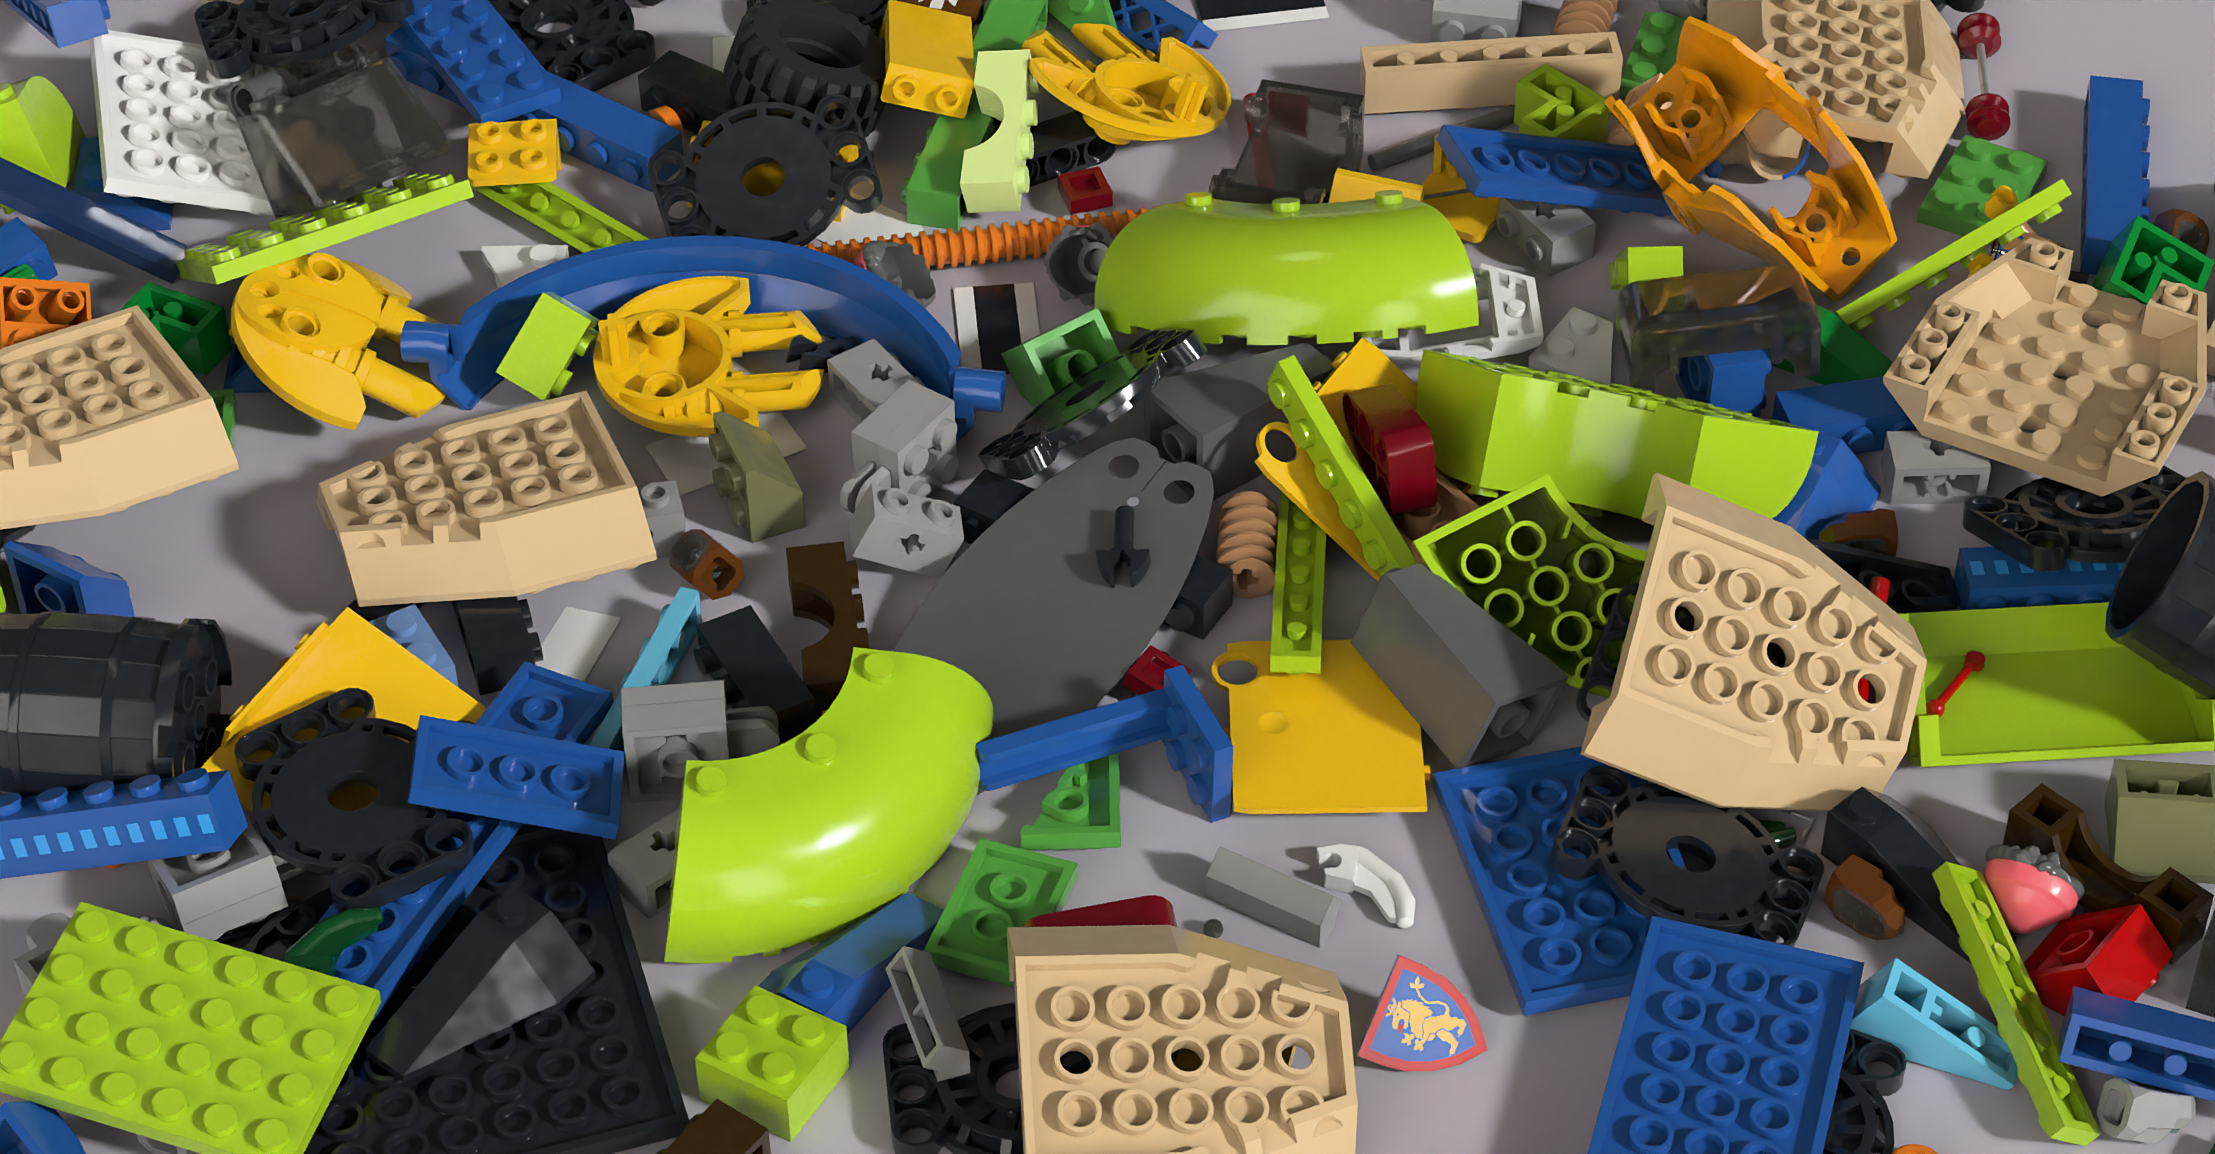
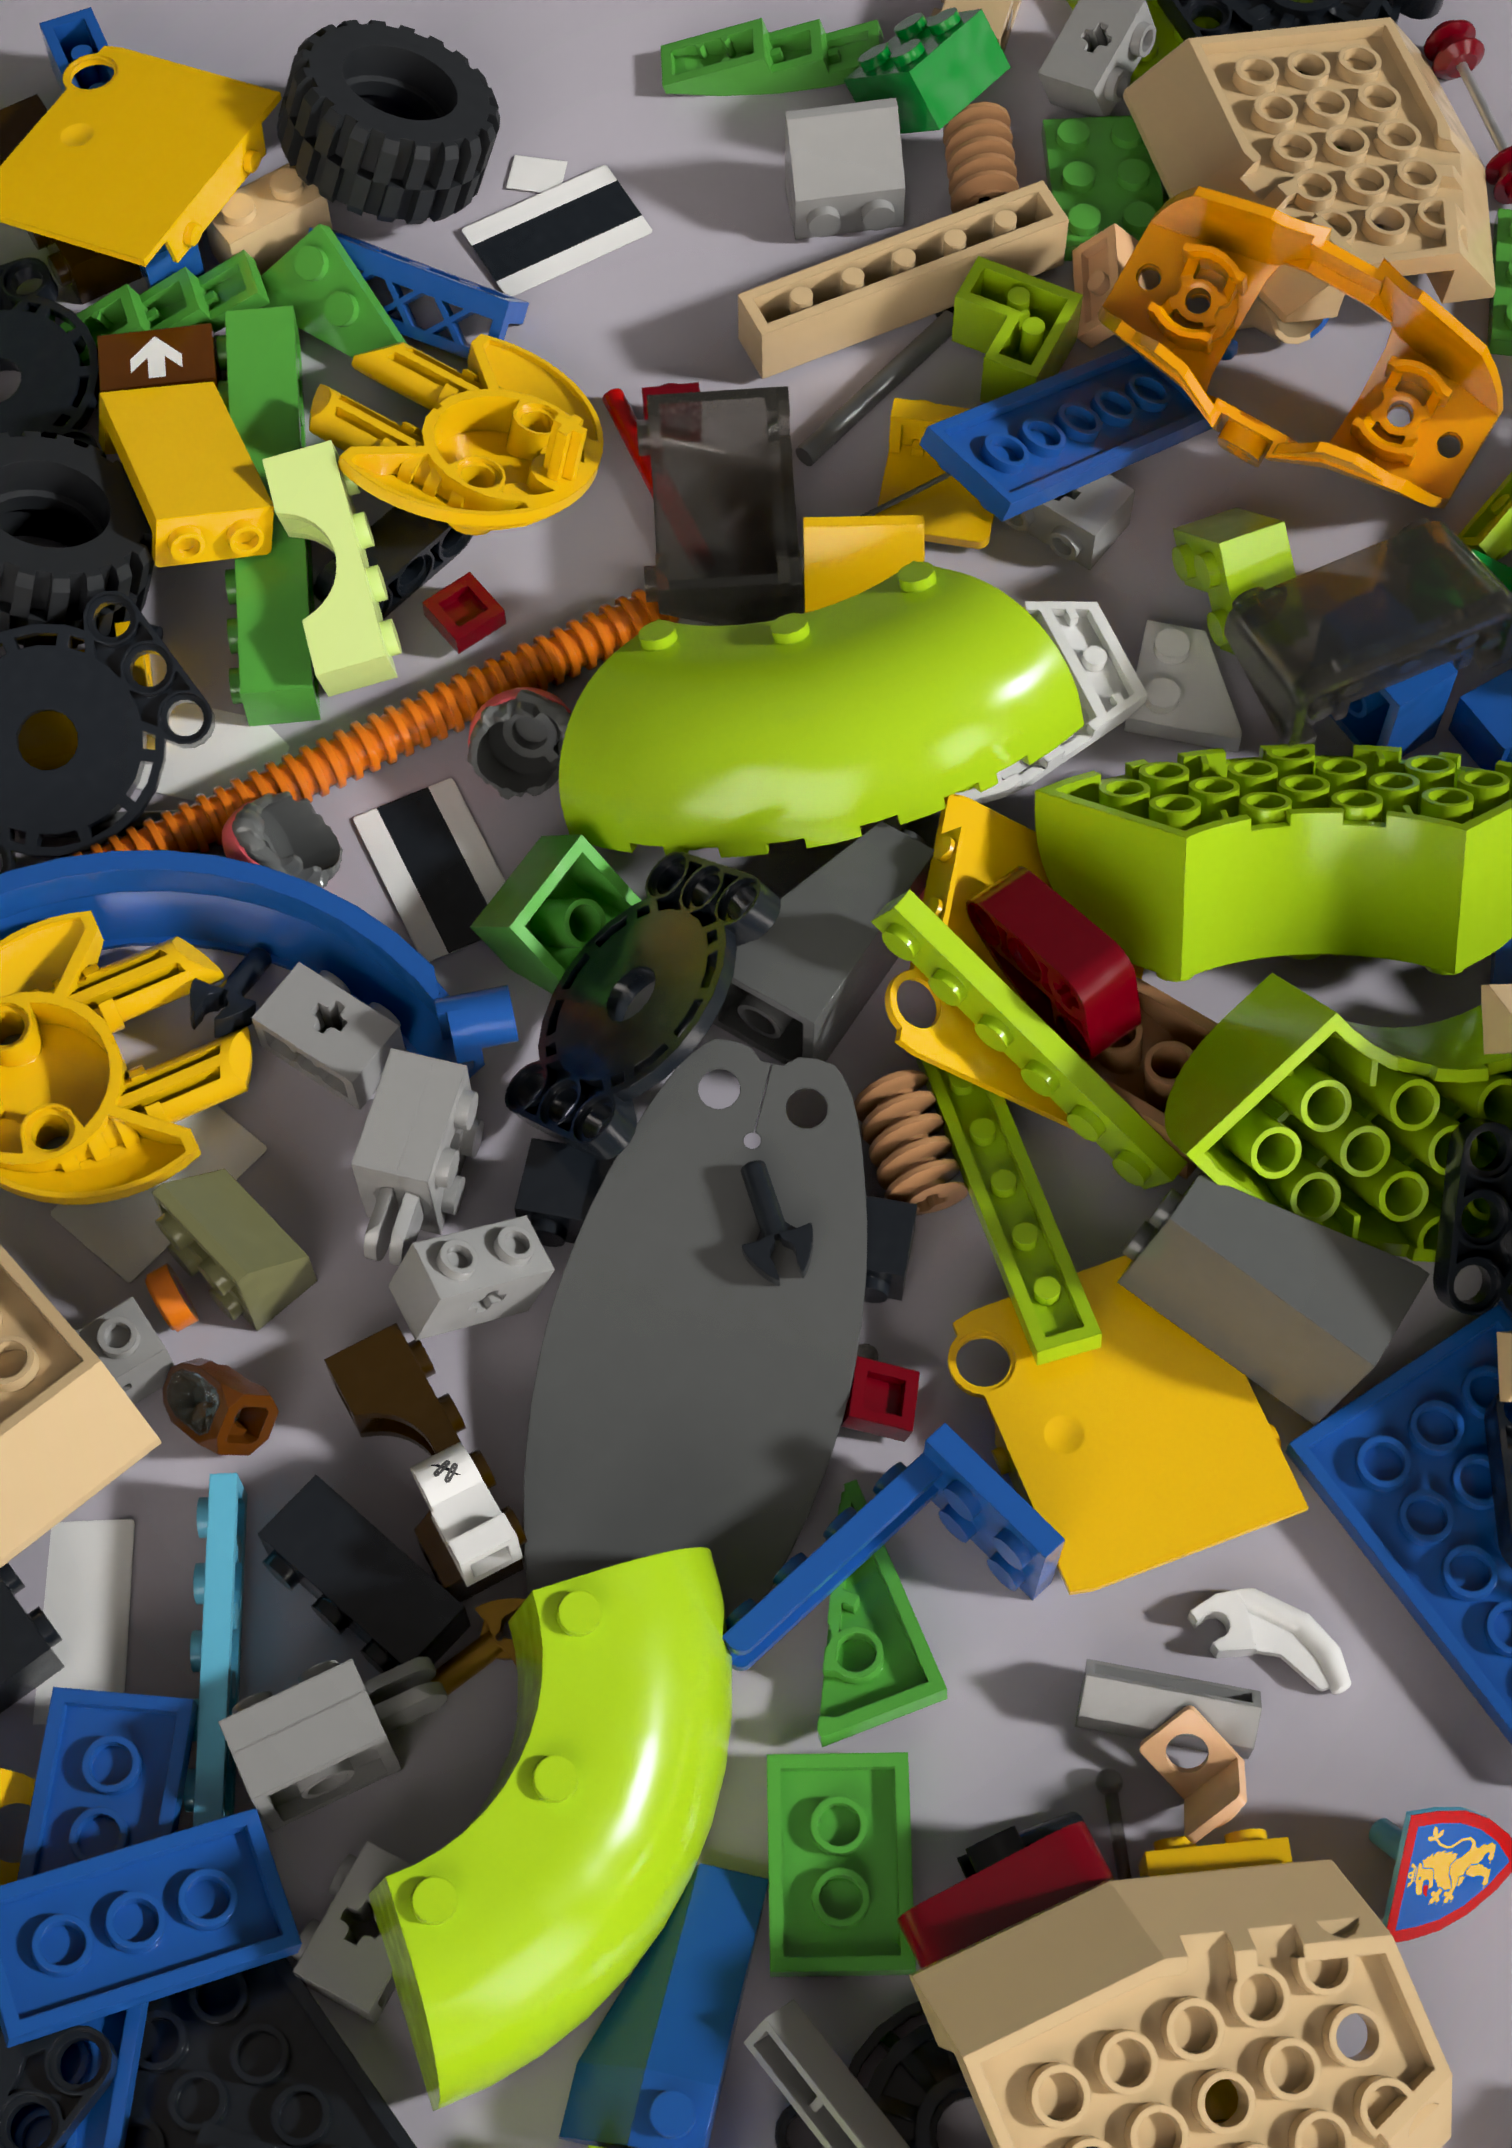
camera: 20 degrees left, 20 degrees up
(702, 501) = (171, 1298): none -> orange tile
(835, 637) = (466, 1514): none -> white leg
(1283, 937) = (1210, 1791): none -> light nougat bracket

